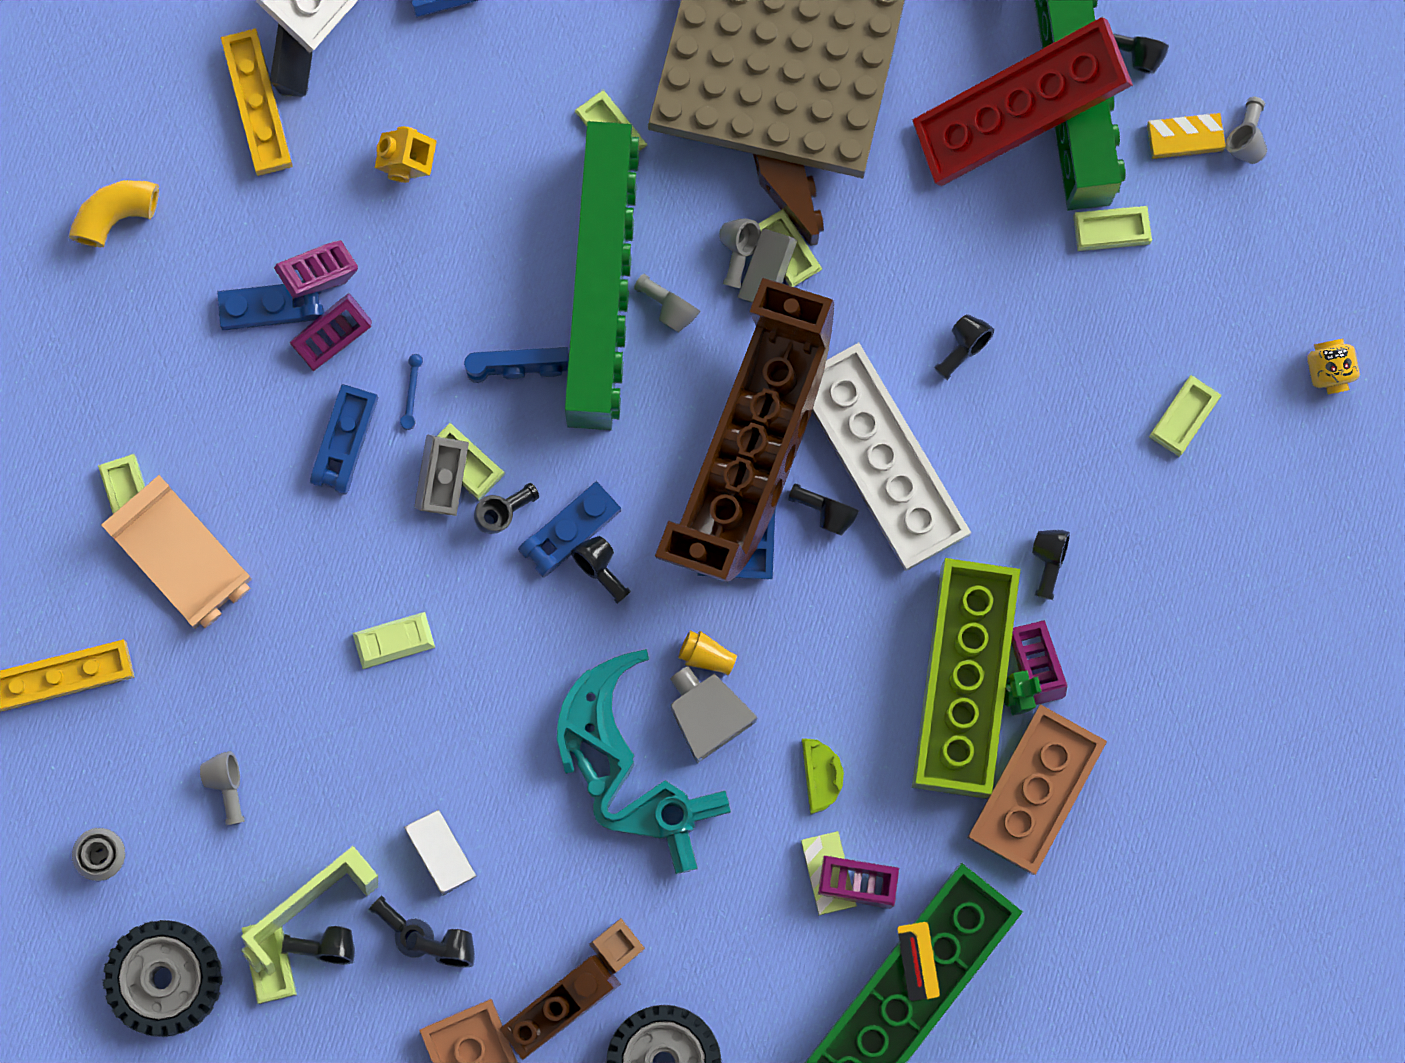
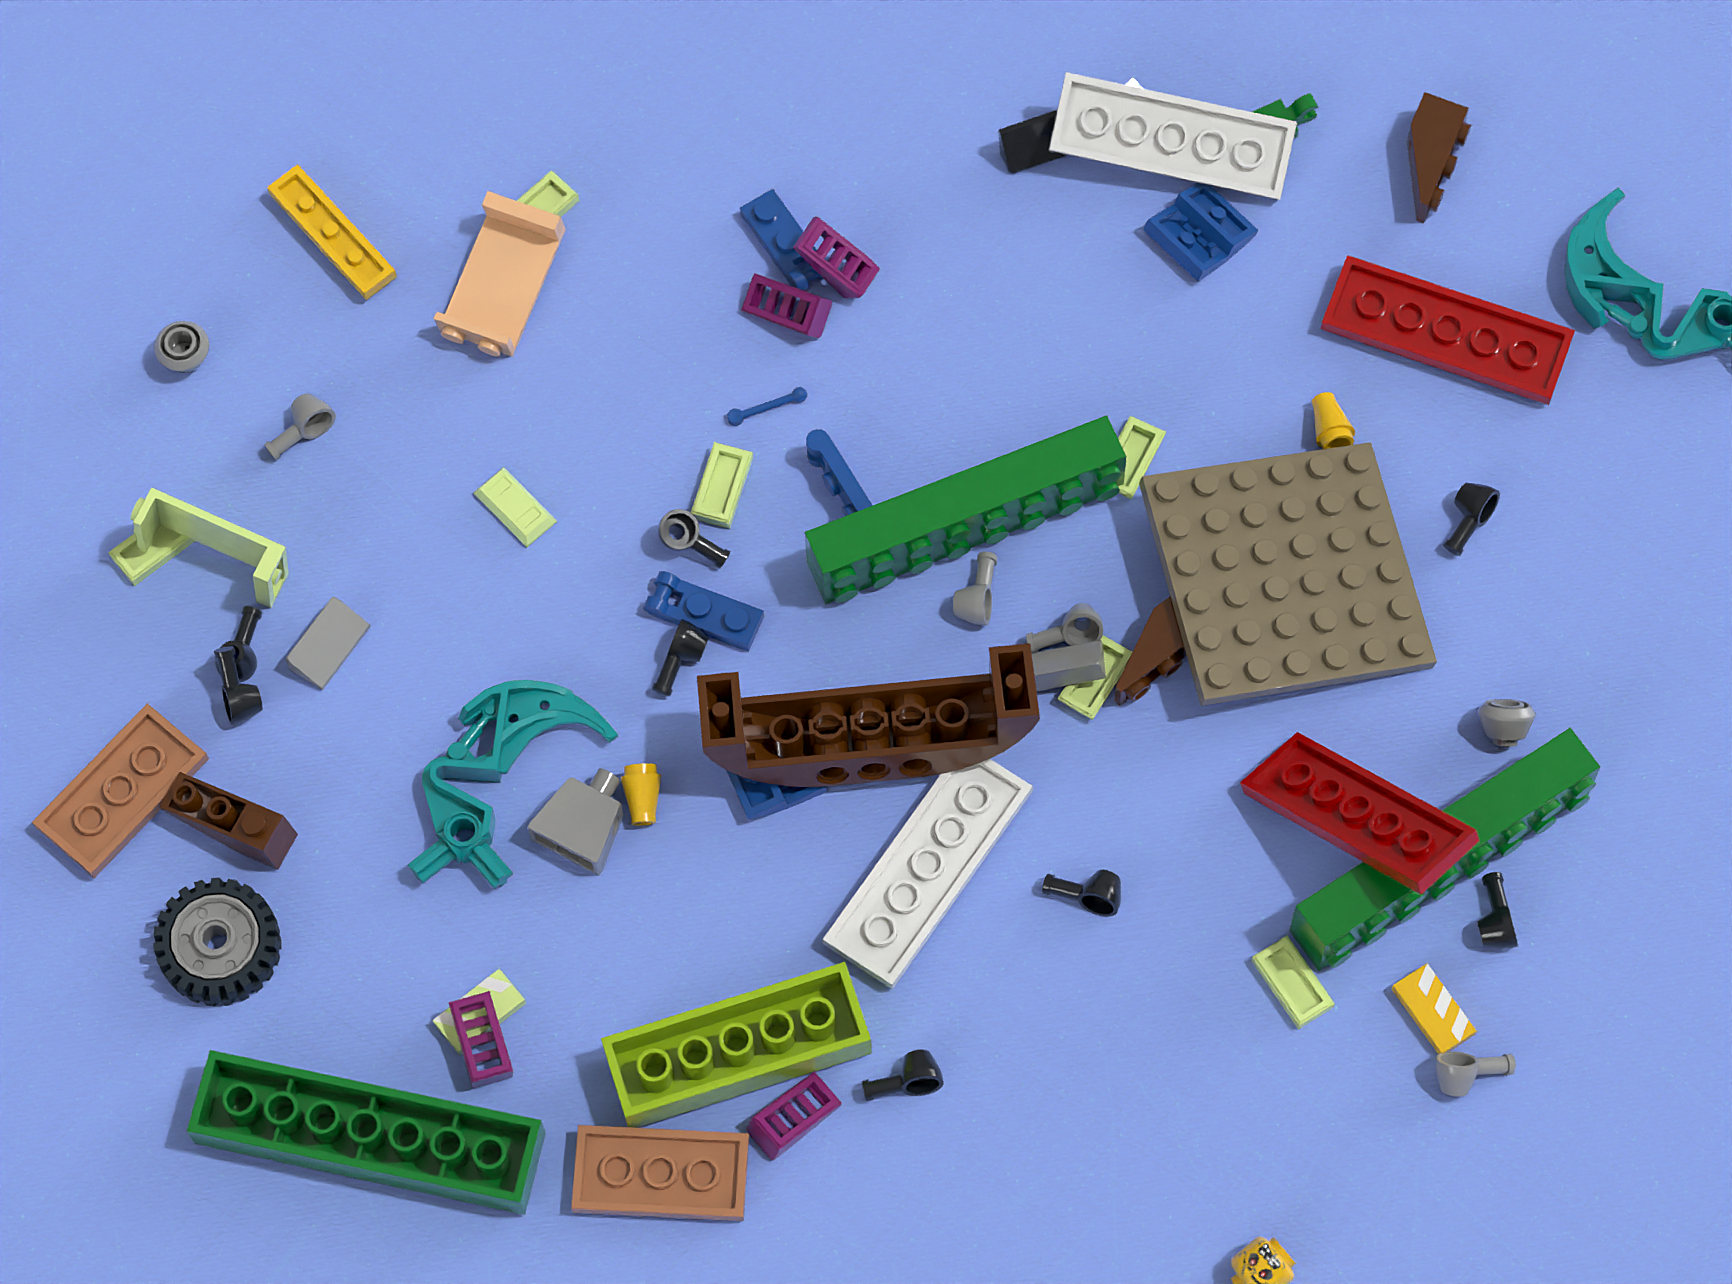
camera: 70 degrees right, 10 degrees down
(111, 205) = (807, 58): yellow cylinder -> none
(132, 972) = (87, 432): wheel -> none
(256, 102) = (976, 132): yellow plate -> none
(334, 947) = (192, 591): black bar -> none
(344, 437) = (687, 366): blue plate -> none
(405, 154) = (994, 281): yellow brick -> none
(441, 475) = (695, 468): light grey slope -> none
(617, 946) = (311, 845): medium nougat plate -> none
(822, 773) = (575, 961): lime tile -> none
(833, 514) = (845, 847): black bar -> none
(918, 961) = (421, 1123): sticker -> none
(1021, 692) = (748, 1104): green plate -> none
(1185, 416) = (1131, 1146): yellowish green tile -> none

